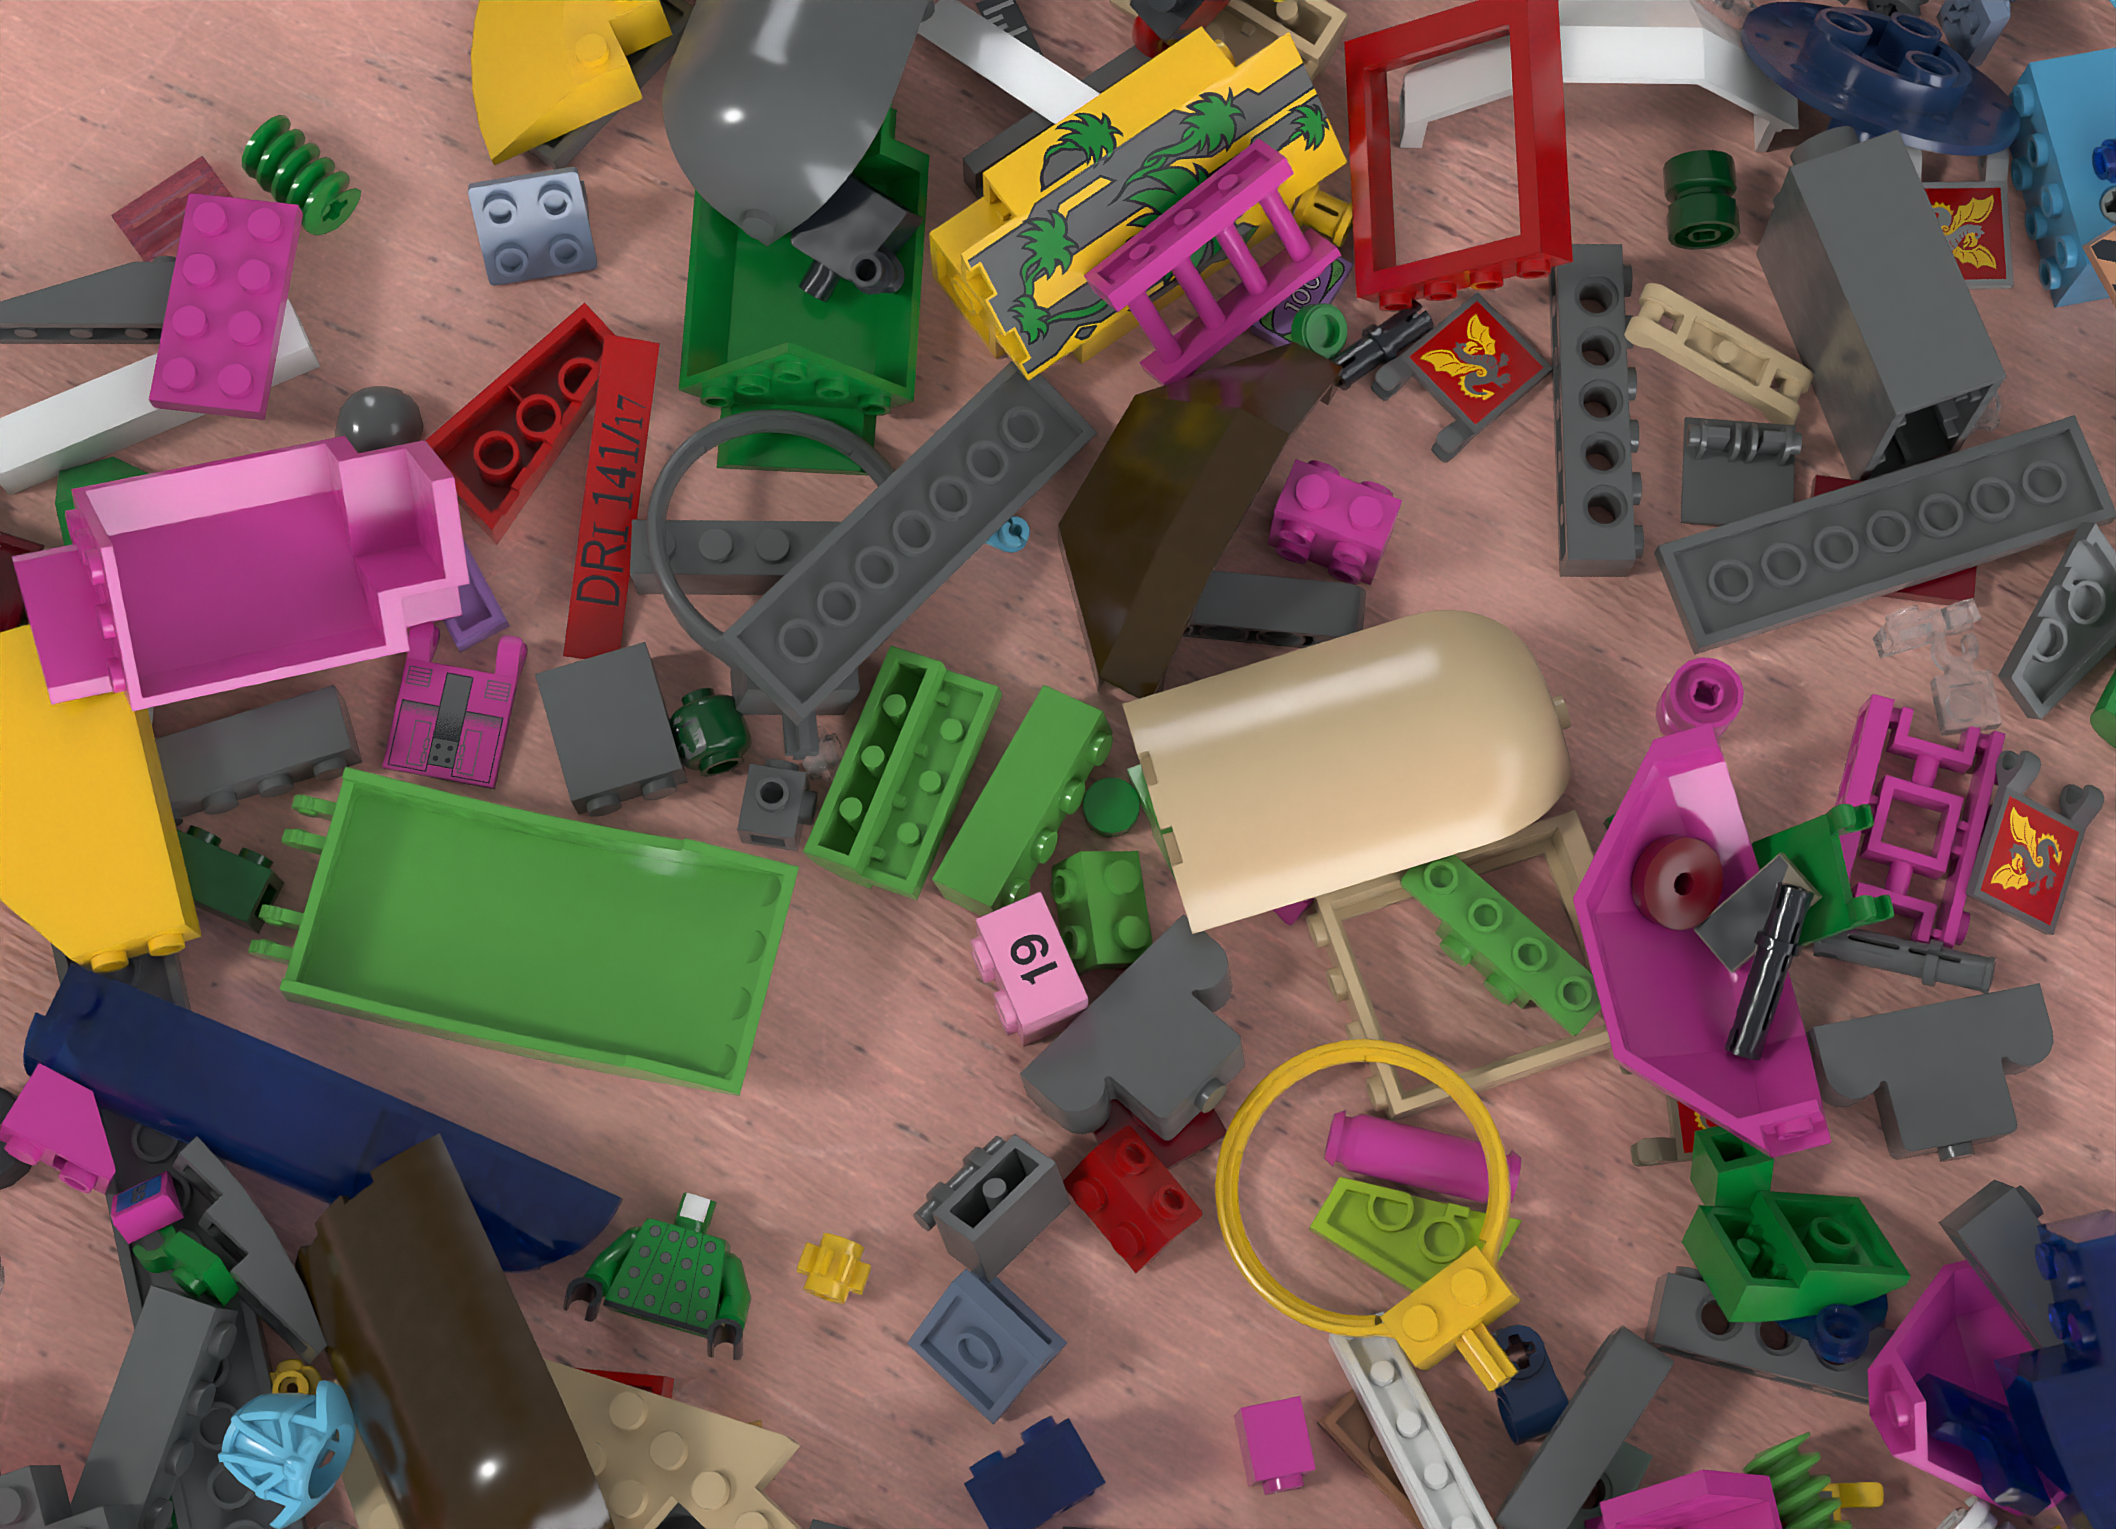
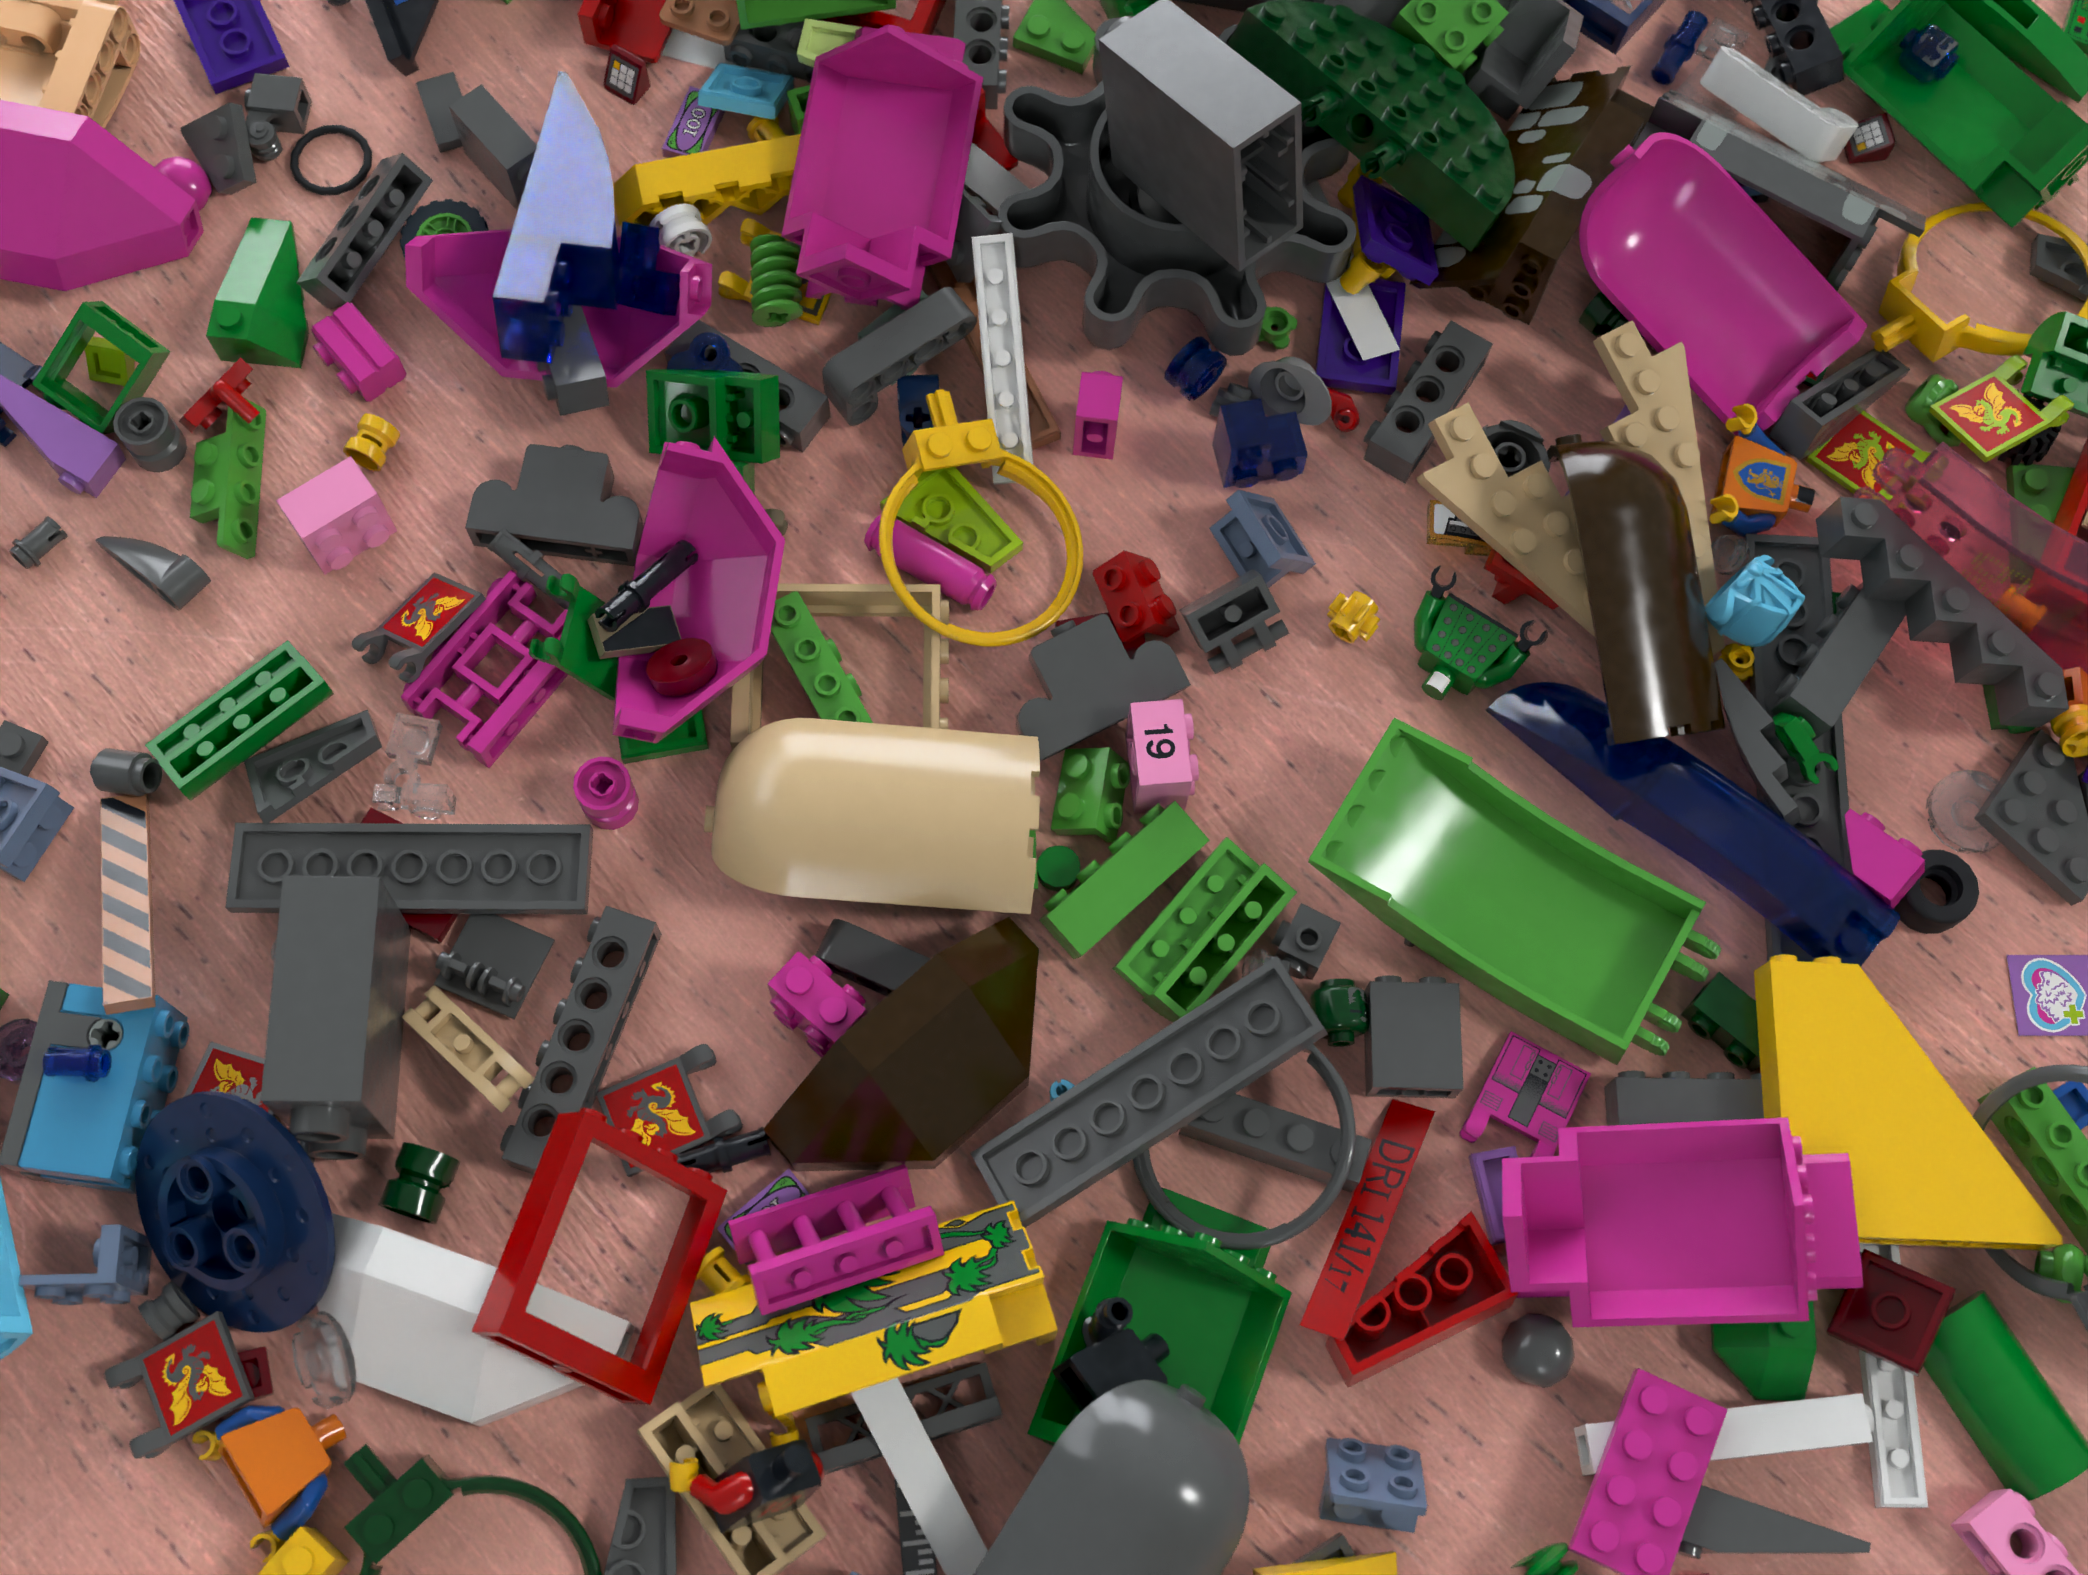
camera: 165 degrees left, 5 degrees down
(146, 1207) = (1825, 796): dark pink slope -> none
(1320, 329) = (766, 1176): green tile -> none

